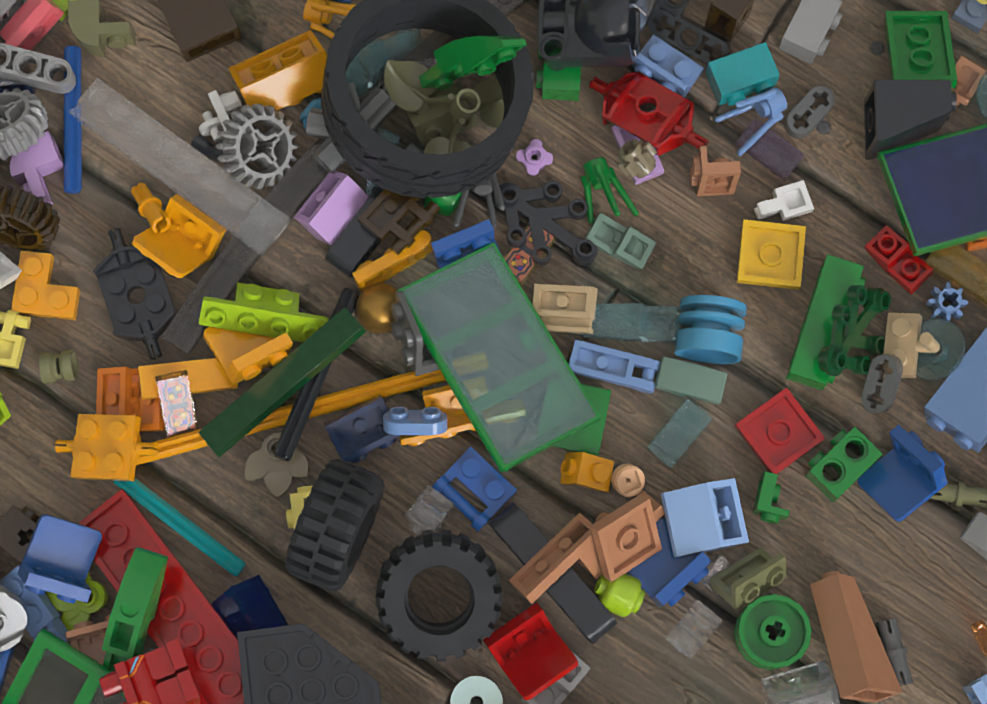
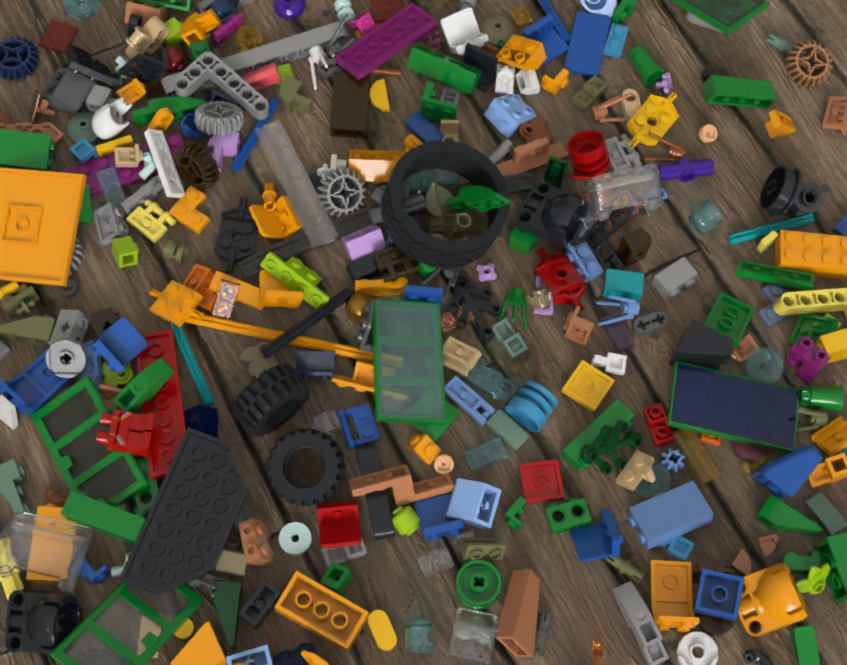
camera: 20 degrees right, 10 degrees down
(282, 382) = (286, 316): dark green tile -> none
(415, 422) = (348, 374): medium blue plate -> none
(625, 537) = (424, 489): nougat tile -> none
(875, 382) = (612, 484): dark grey beam -> none

